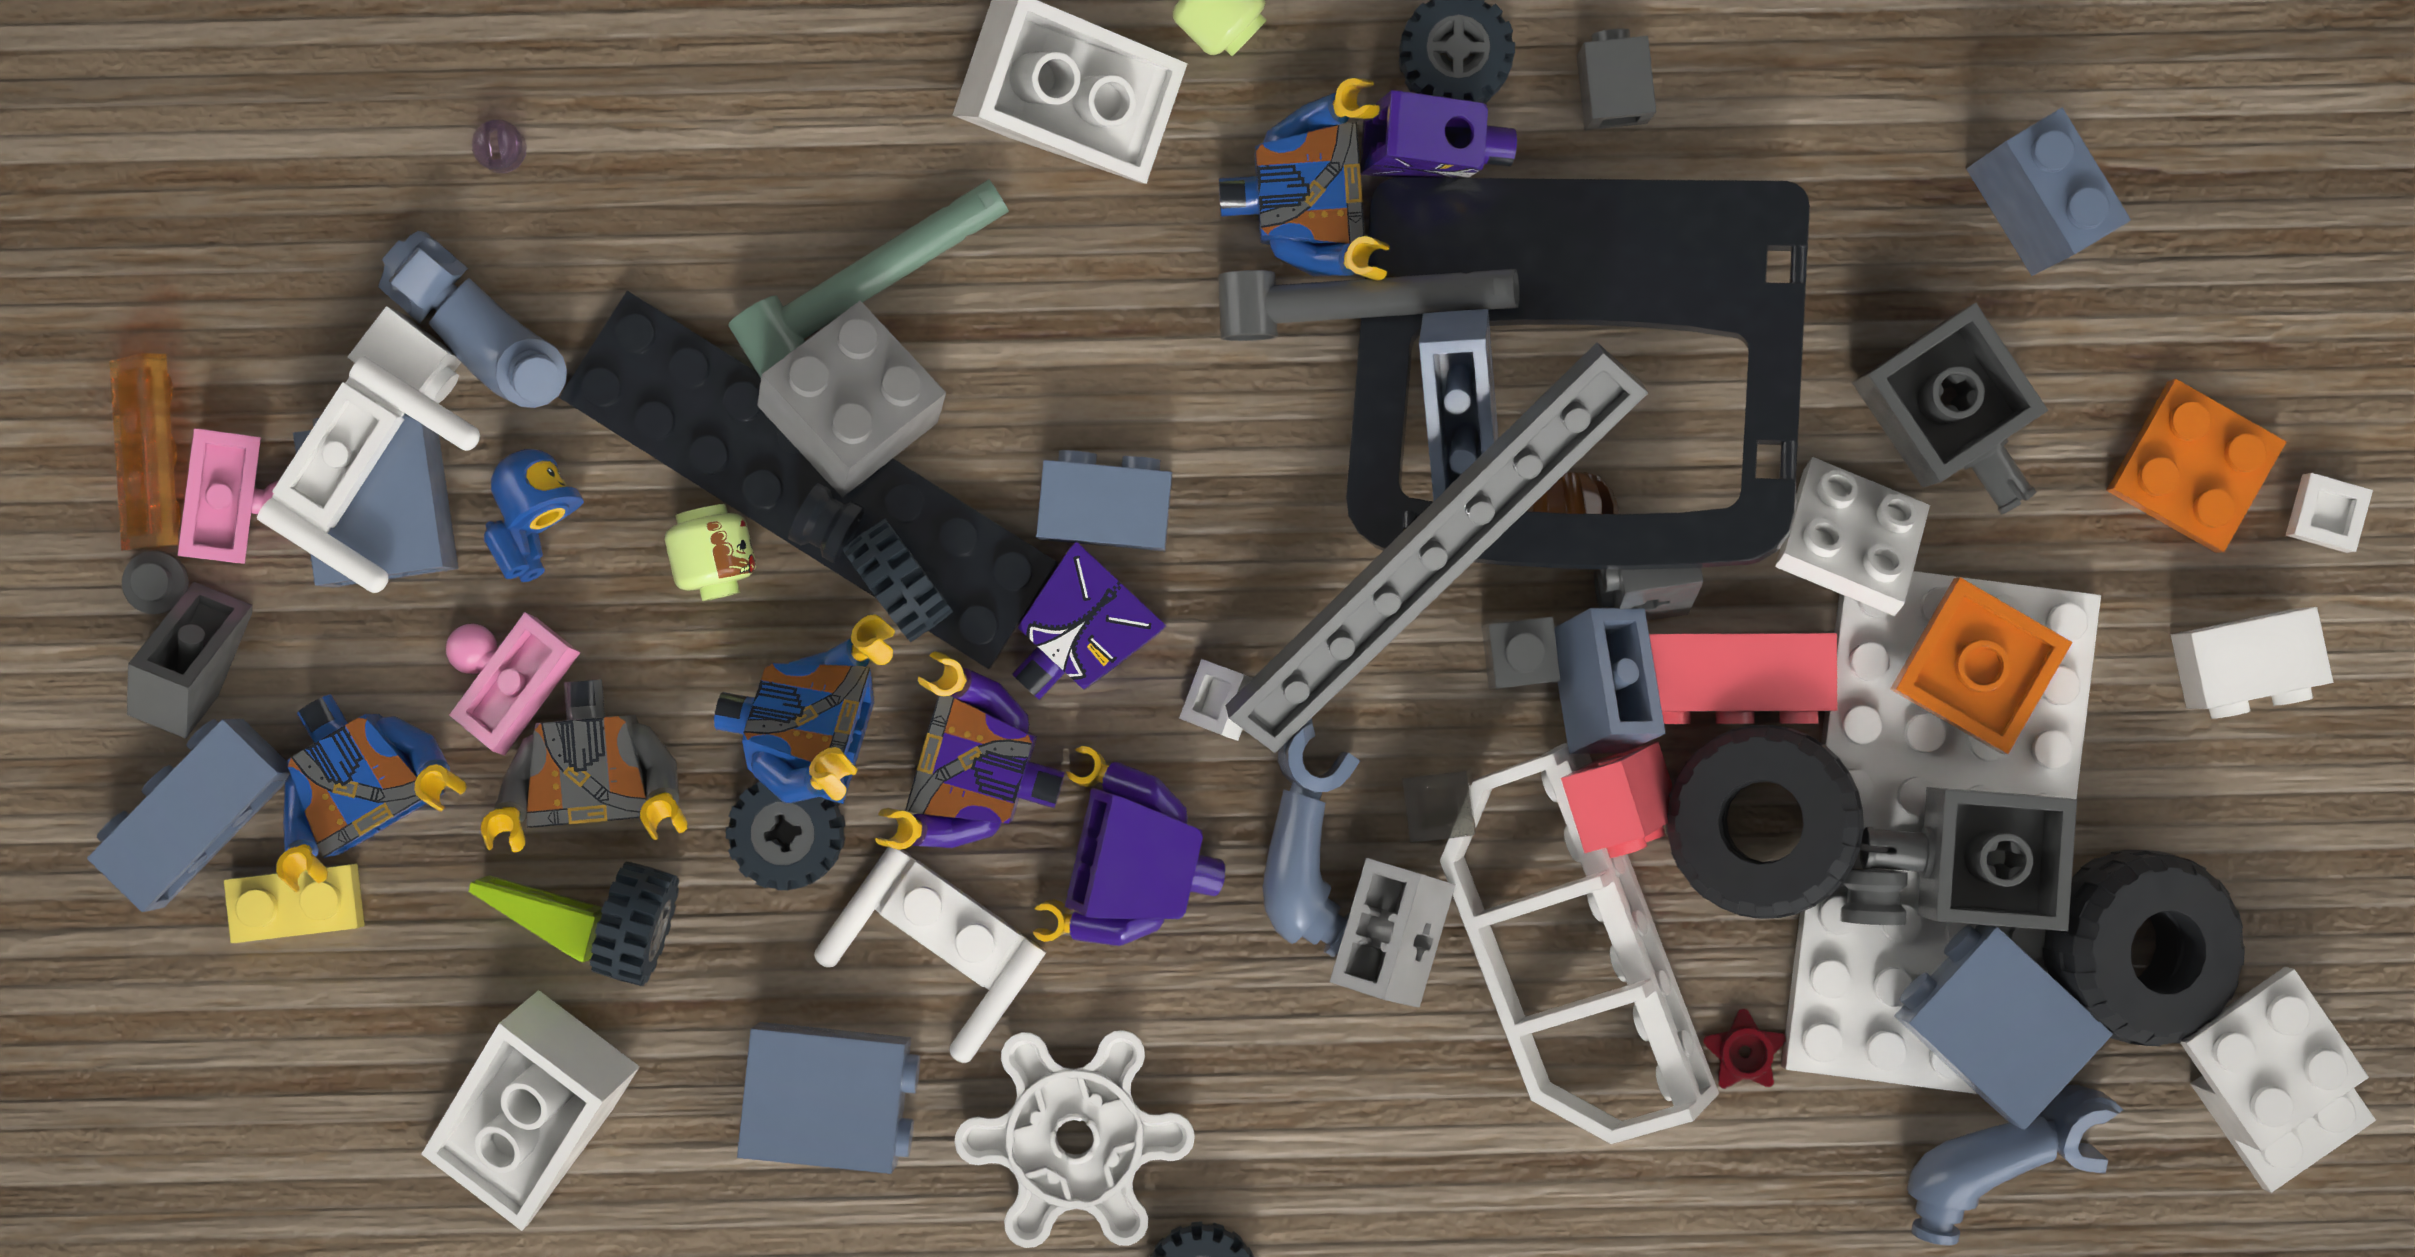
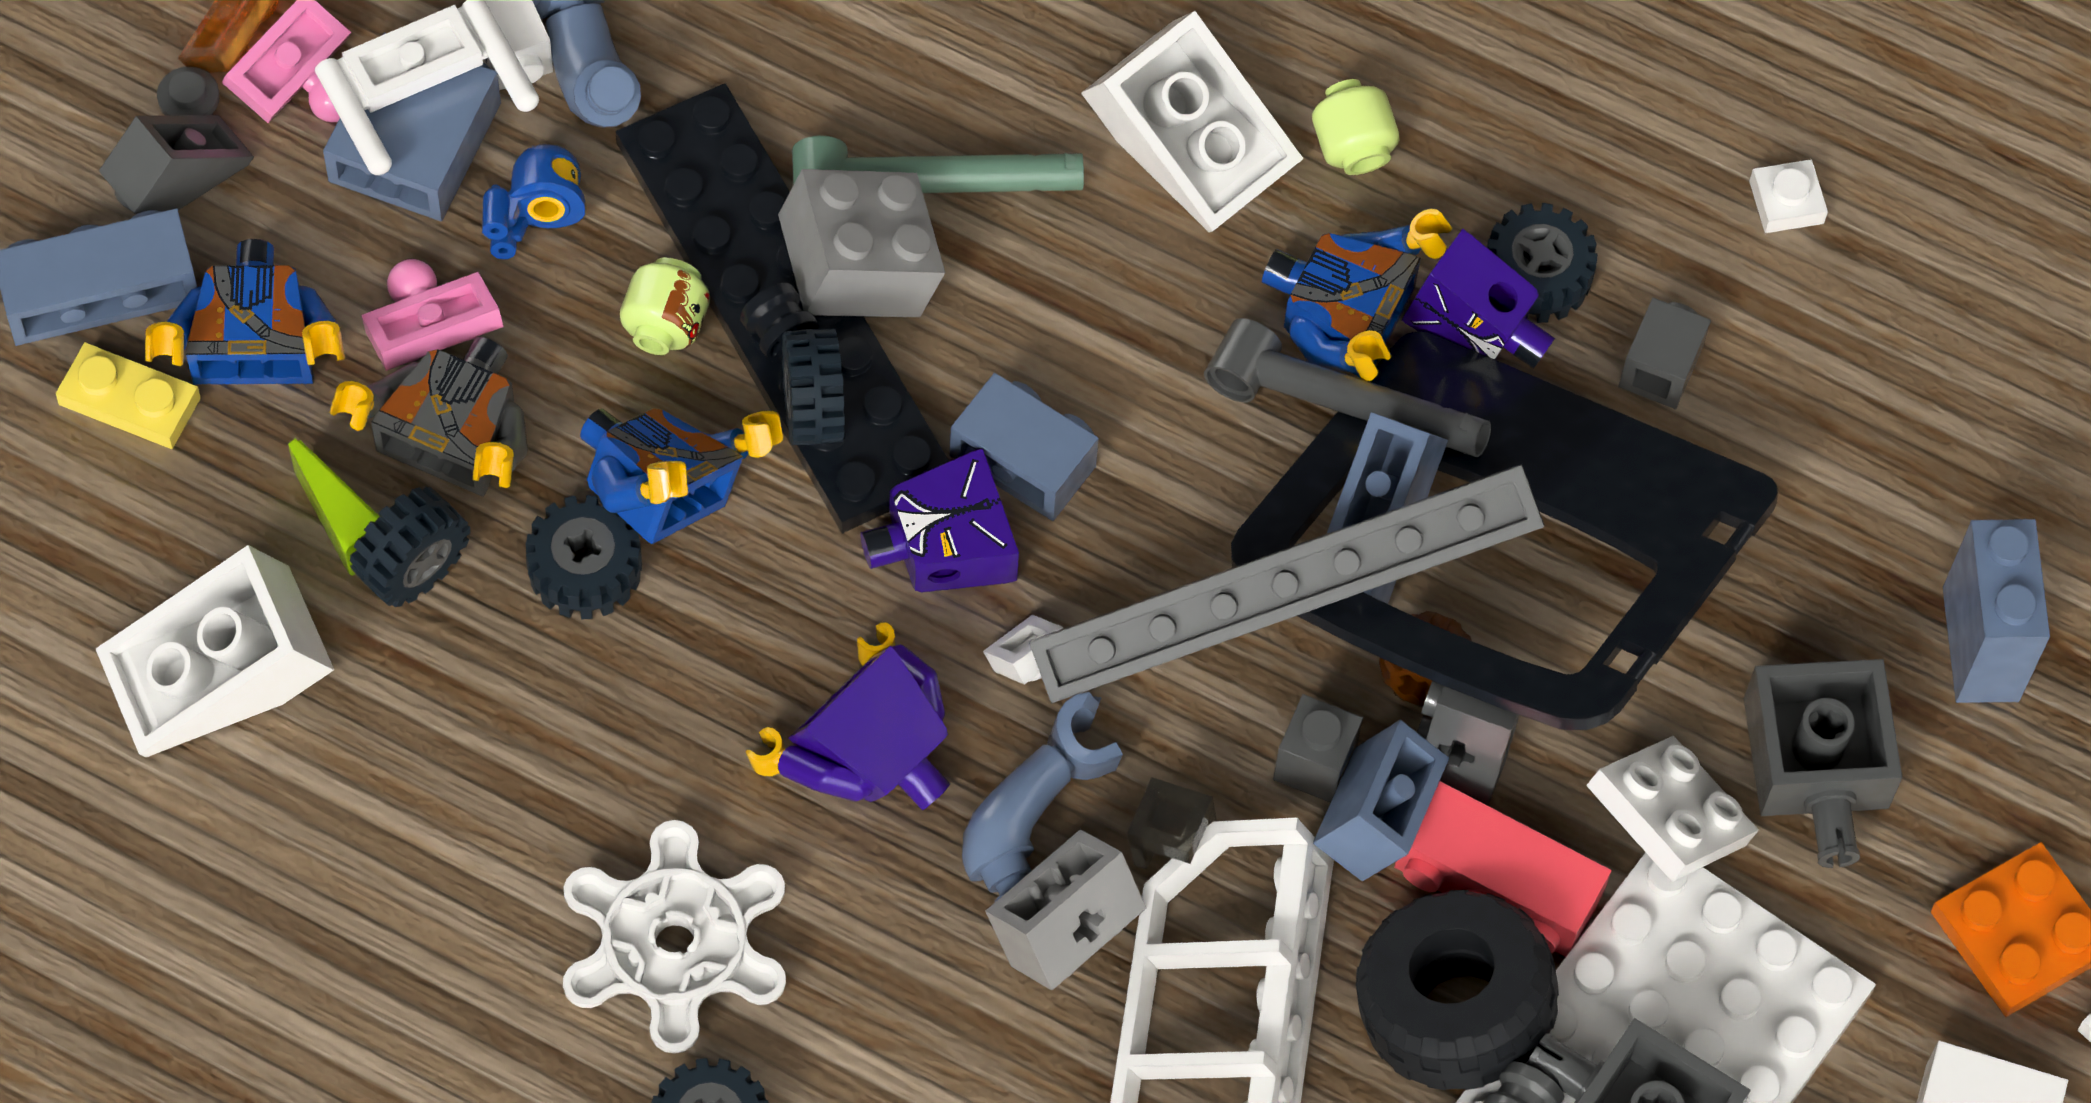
camera: 25 degrees right, 25 degrees down
(827, 1097) = (478, 783): sand blue brick -> none
(950, 927) = (674, 712): white plate -> none
(971, 765) = (780, 583): torso -> none
(1620, 800) = (1335, 894): coral brick -> none
(1981, 665) = (1728, 965): orange plate -> none

